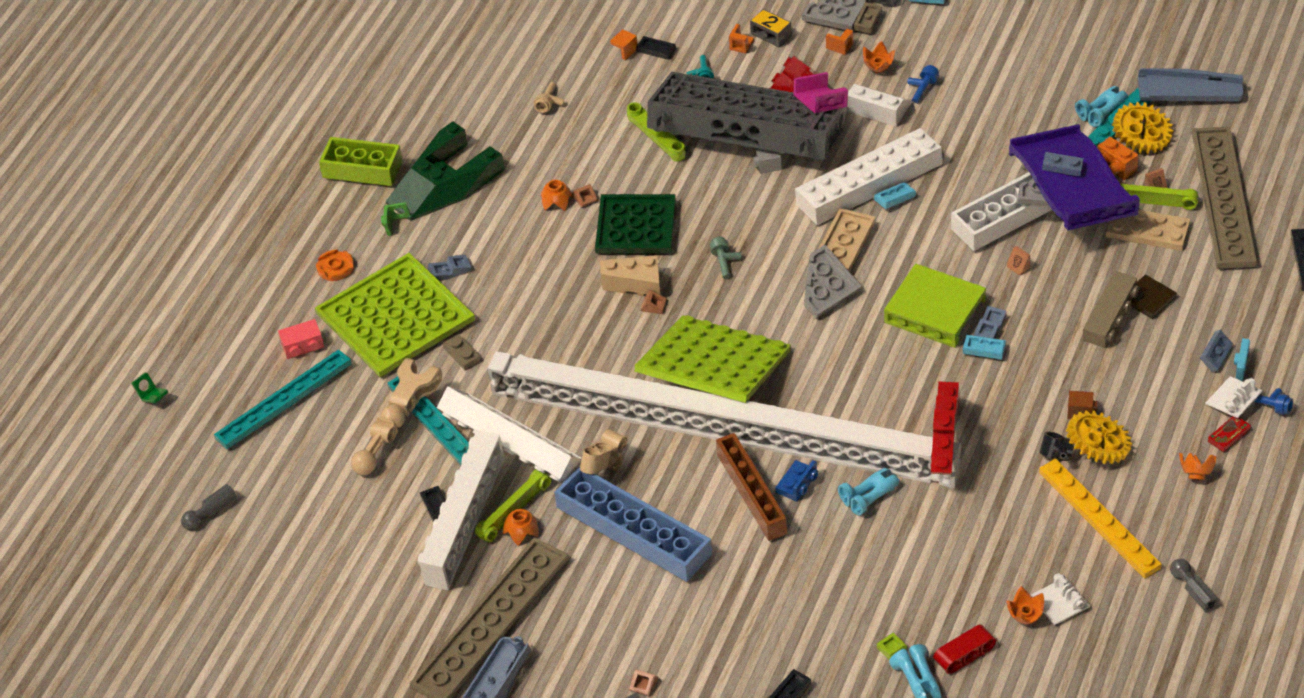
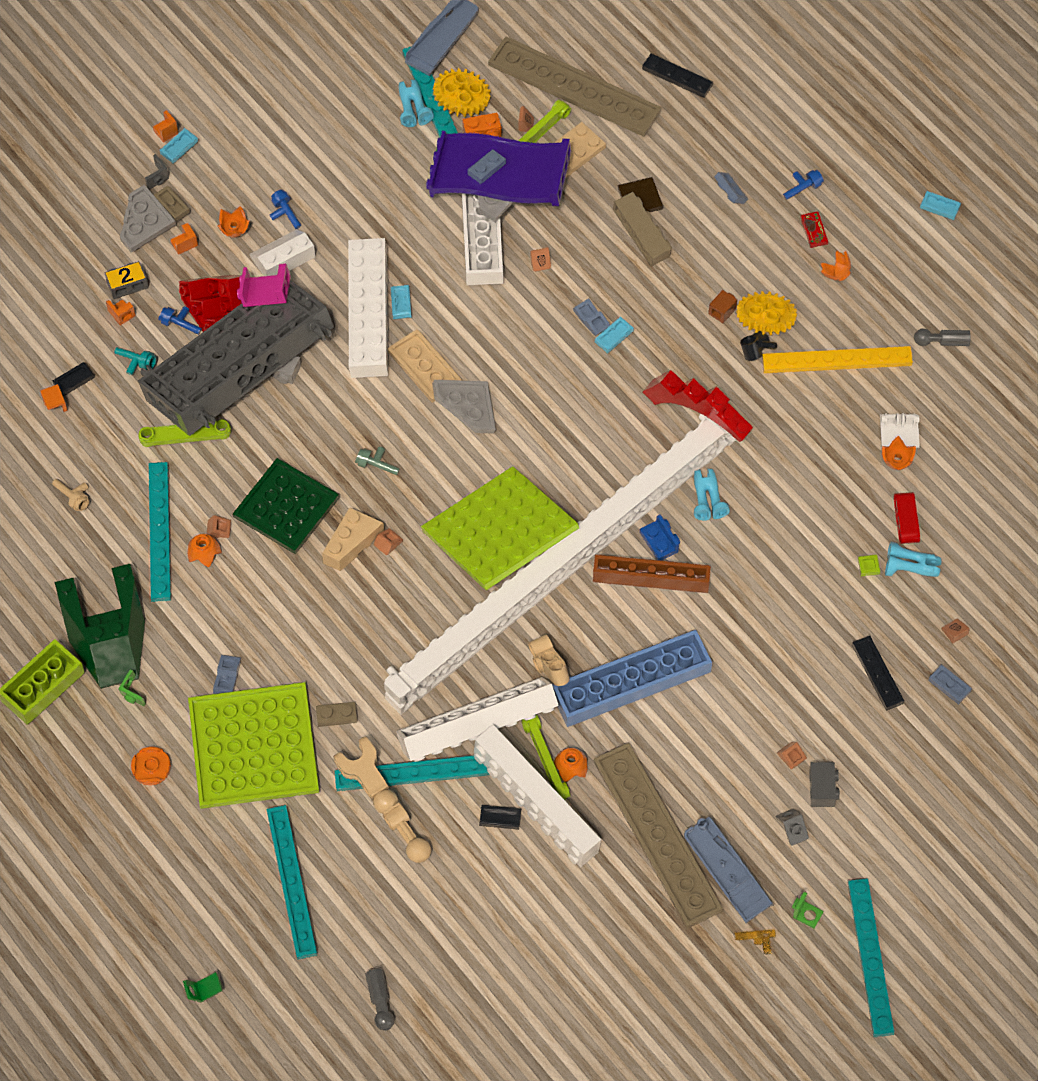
camera: 65 degrees left, 15 degrees up
(301, 339) = (229, 834): coral brick -> none
(553, 164) = (159, 532): none -> teal plate
(757, 68) = (167, 316): none -> blue piece
(933, 304) = (547, 341): lime panel -> none
(1234, 396) = (785, 204): white hinge -> none
(1241, 359) = (752, 177): medium azure plate -> none

